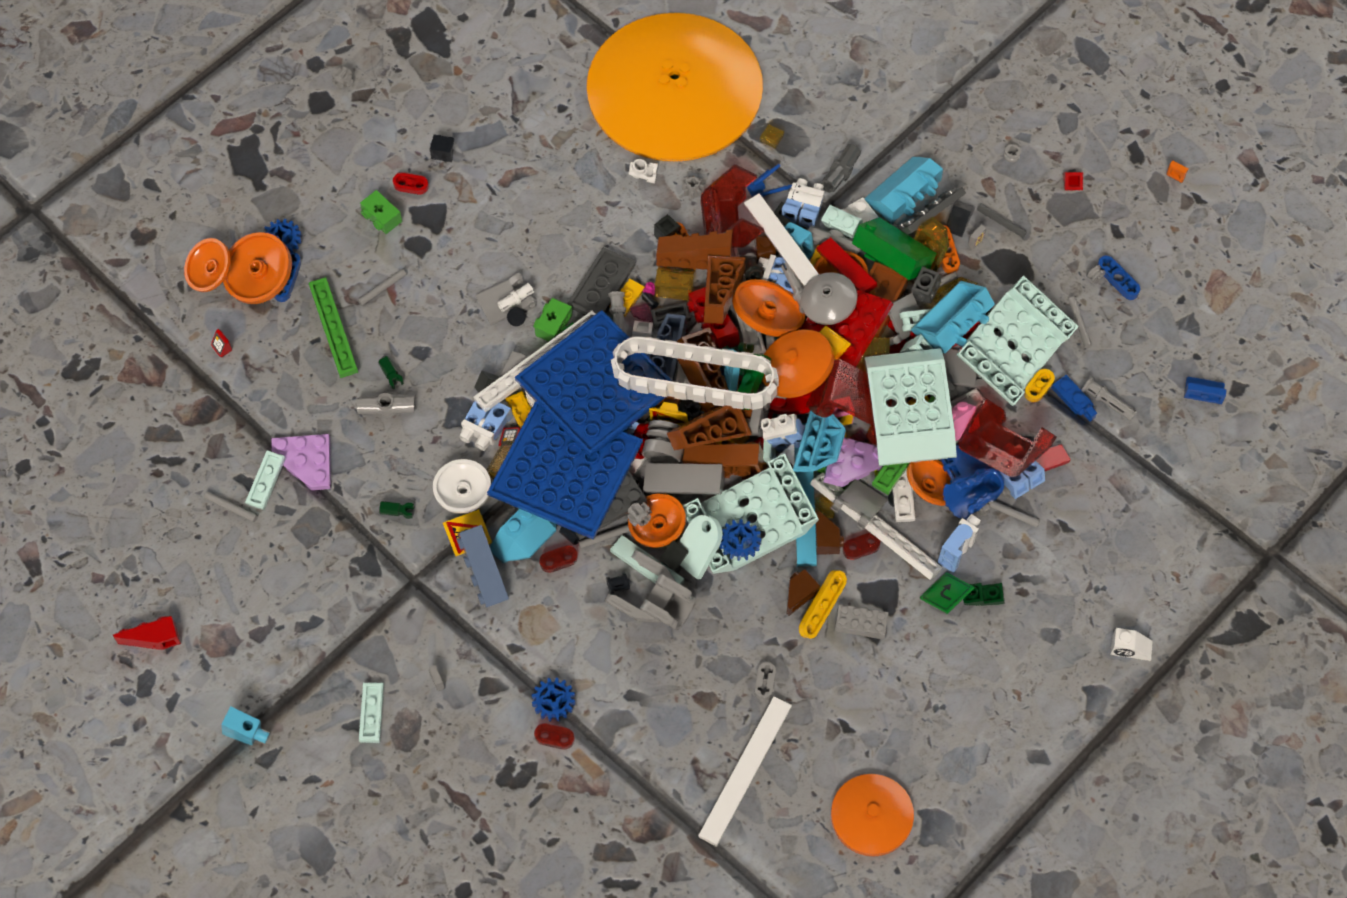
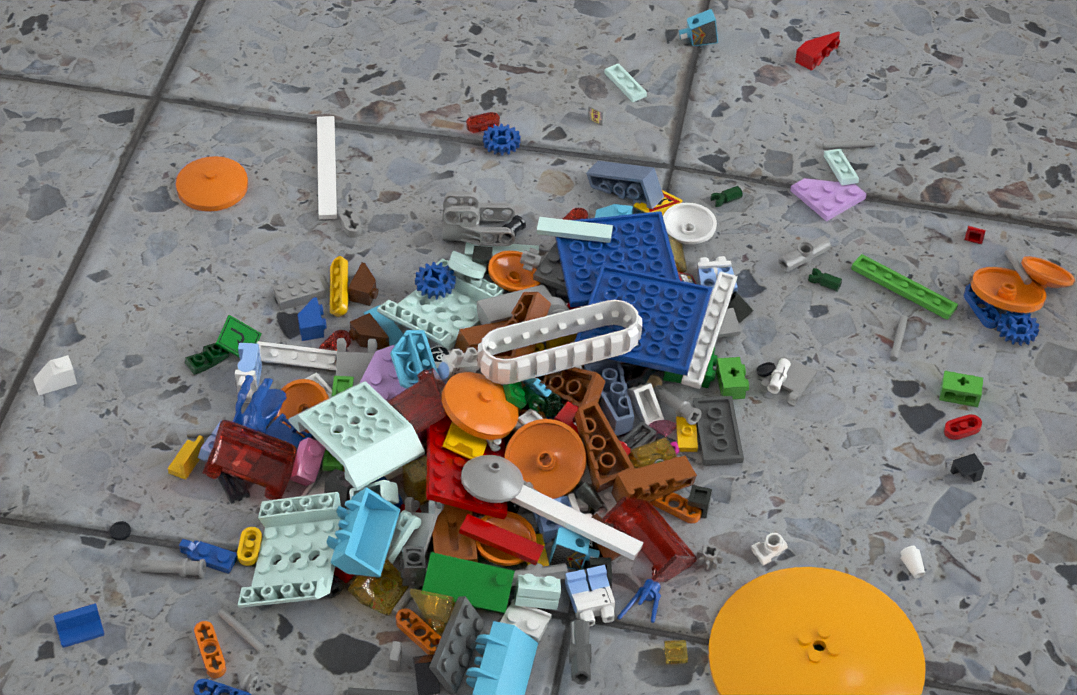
camera: 145 degrees right, 15 degrees down
(222, 290) = (1018, 267): none -> light grey bar
(547, 108) = (912, 559): none -> white cone
(583, 510) = (574, 229): none -> light aqua tile
(871, 577) = (310, 321): none -> blue slope
(1050, 496) = (186, 458): none -> yellow panel
(1053, 458) = (203, 489): tile -> none
(1106, 325) = (208, 657): none -> orange beam
(1136, 461) = (120, 530): none -> black piece

